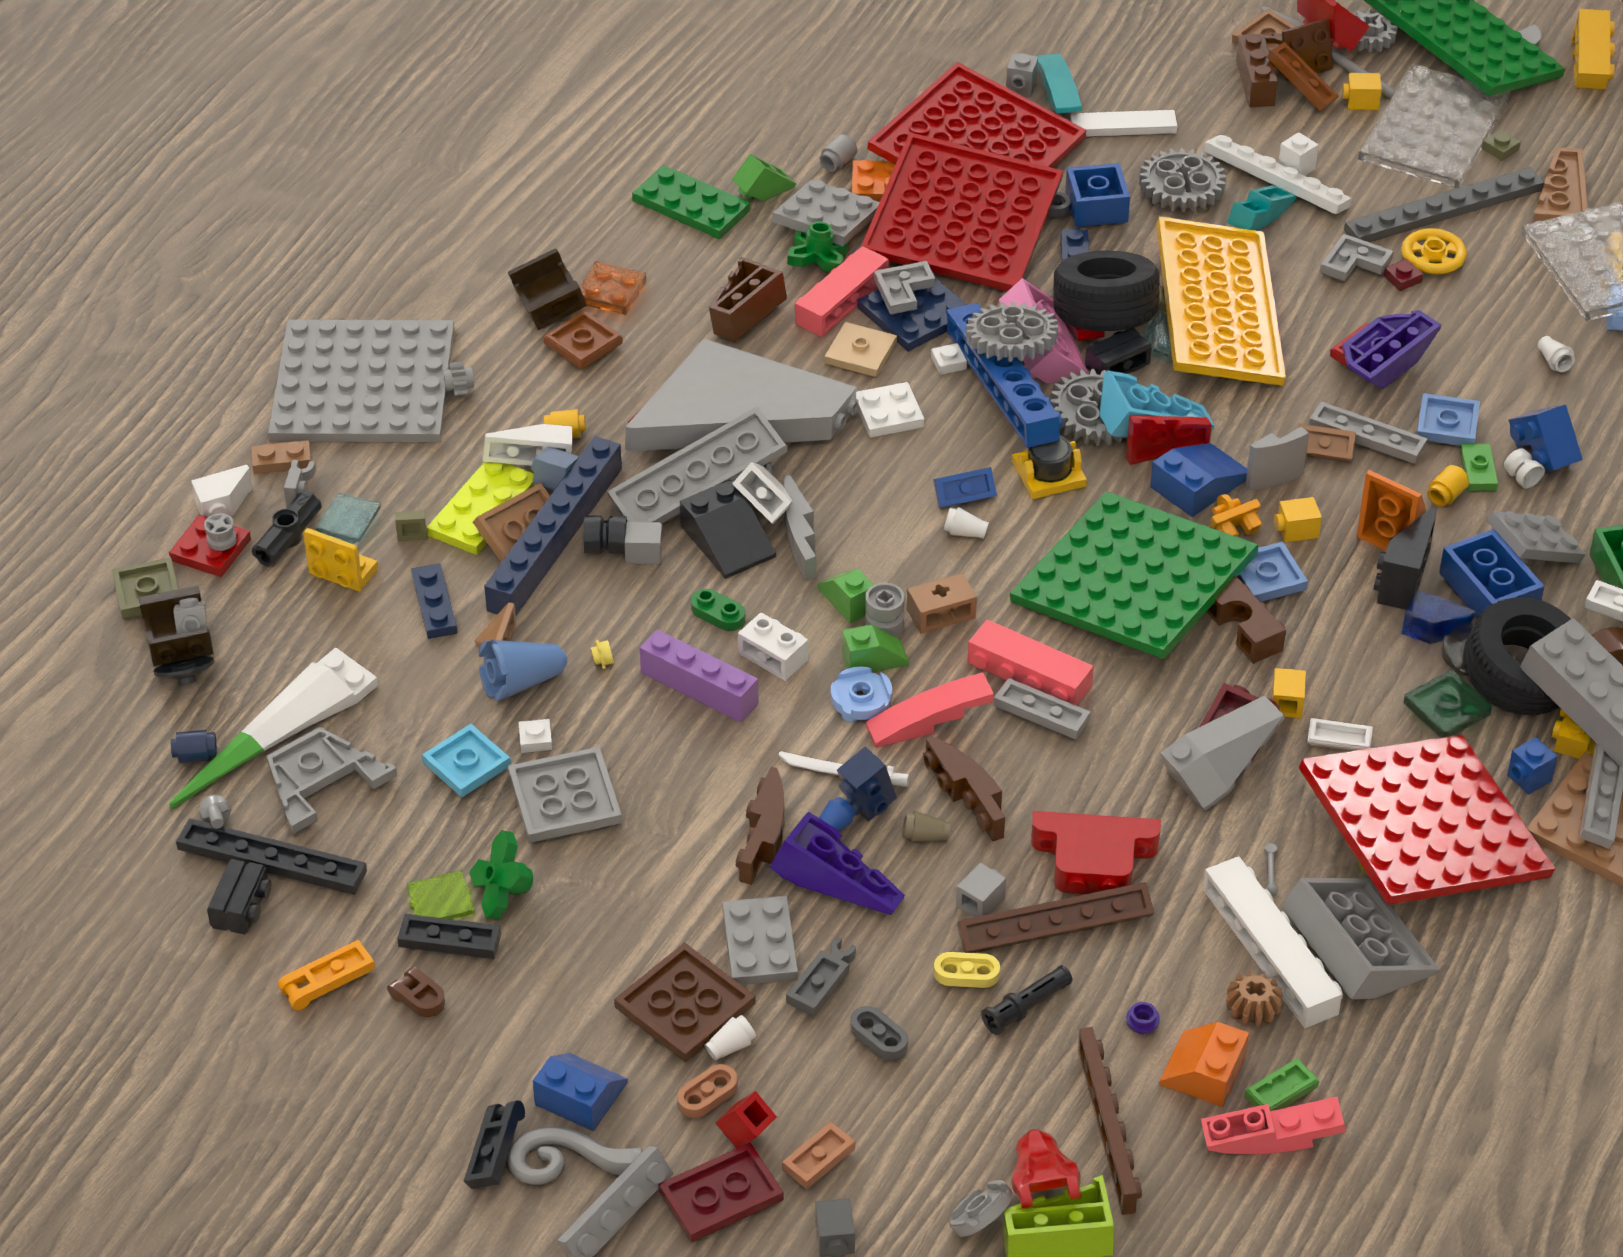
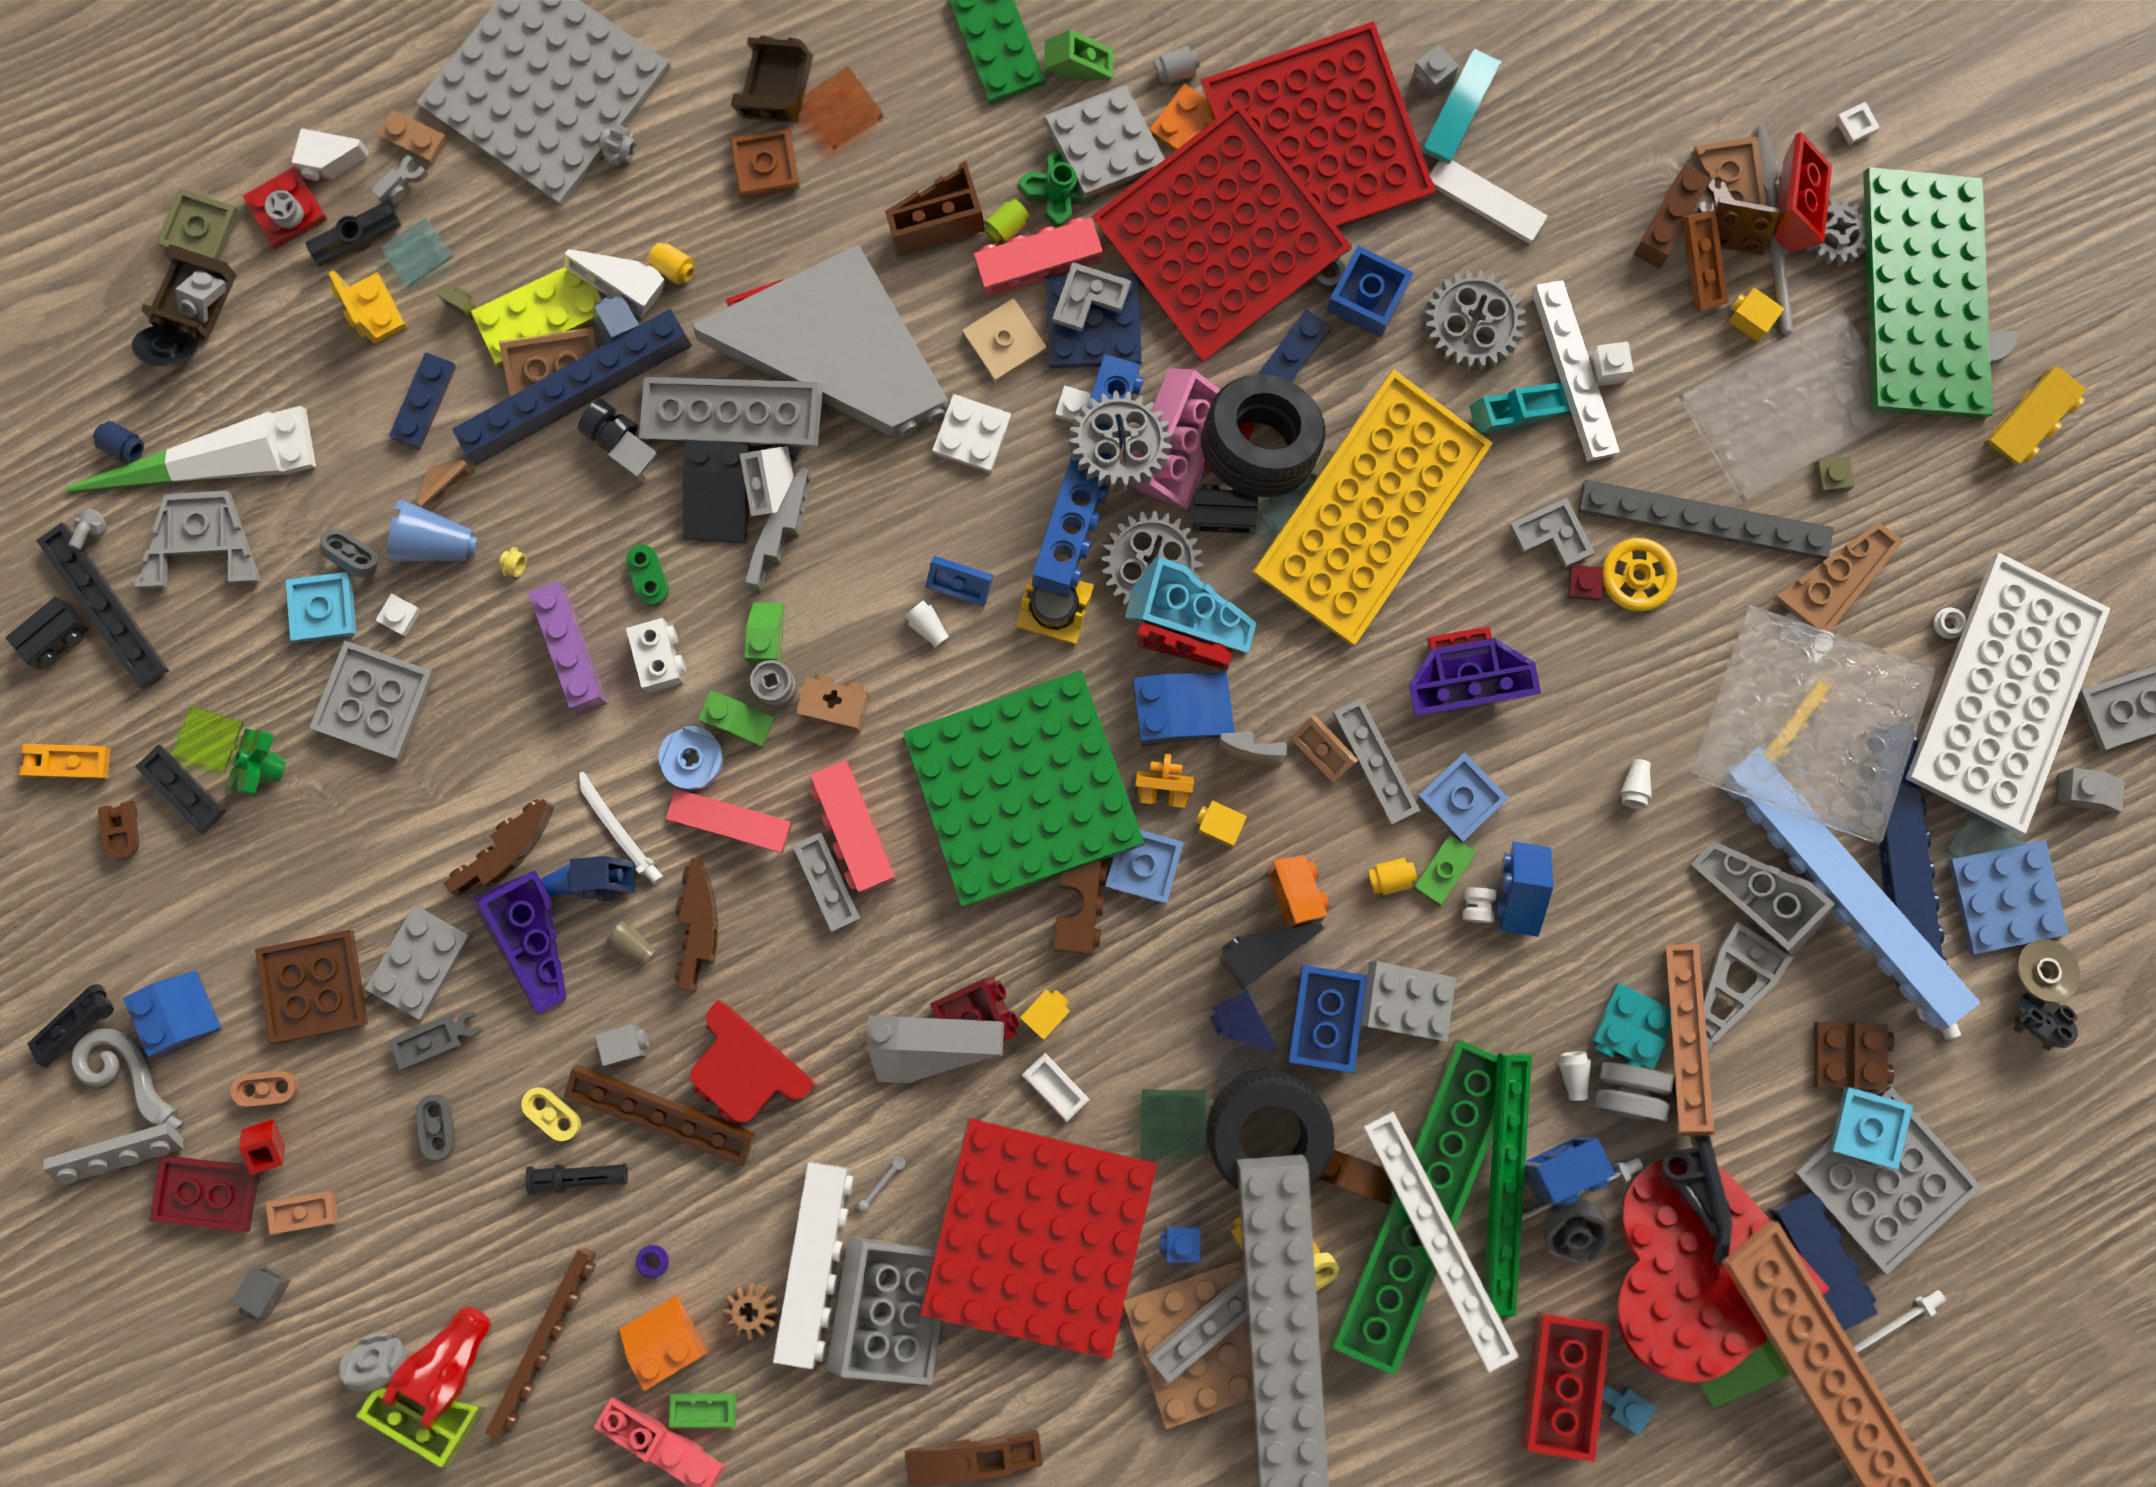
camera: 40 degrees right, 35 degrees up
(448, 715) = (351, 553): none -> dark grey plate
(730, 1038) = (320, 1050): white cone -> none
(798, 282) = (1006, 222): none -> lime brick
(1519, 984) = (973, 1460): none -> reddish brown slope

